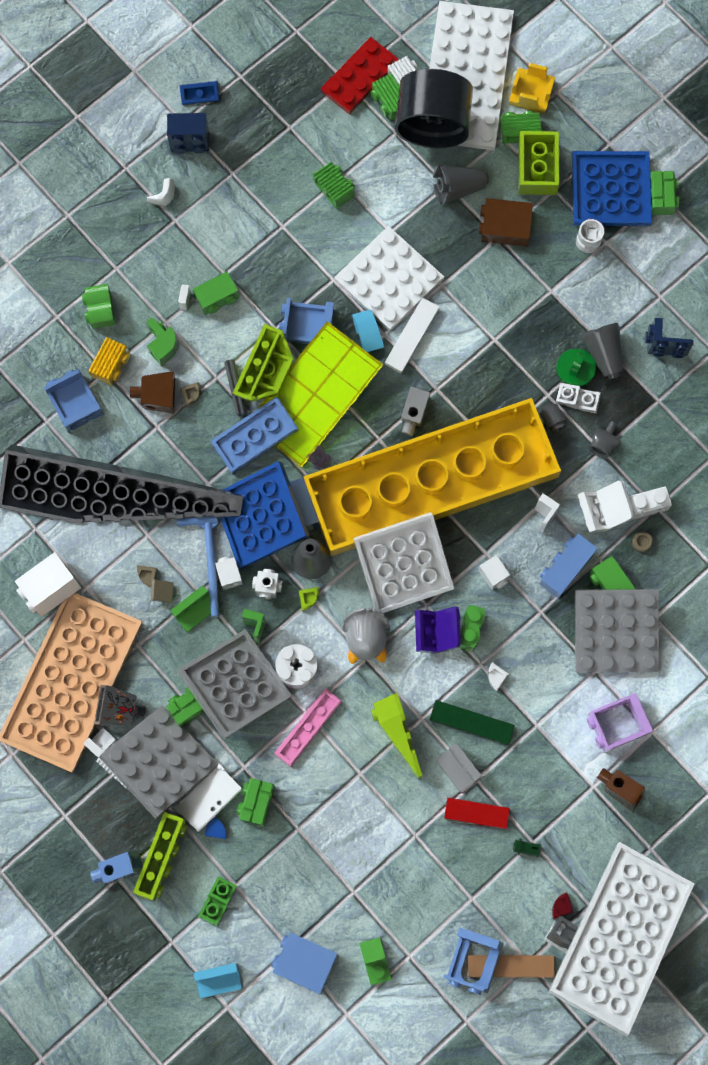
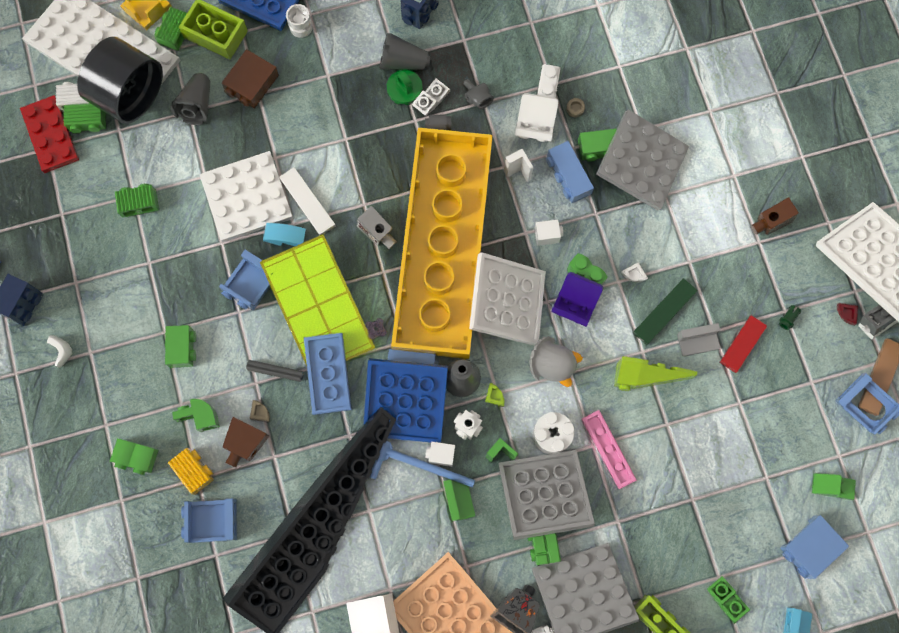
camera: 65 degrees left, 0 degrees up
(147, 574) = (407, 527): dark tan tile -> none
(161, 591) = (428, 521): dark tan tile -> none
(184, 297) = (167, 375): white tile -> none
(206, 795) = (627, 554): white door -> none
(215, 829) = (662, 572): blue tile -> none
(256, 802) = (656, 524): bright green brick -> none
(265, 366) = (271, 333): lime wedge -> none
(637, 712) = (723, 178): lavender window -> none

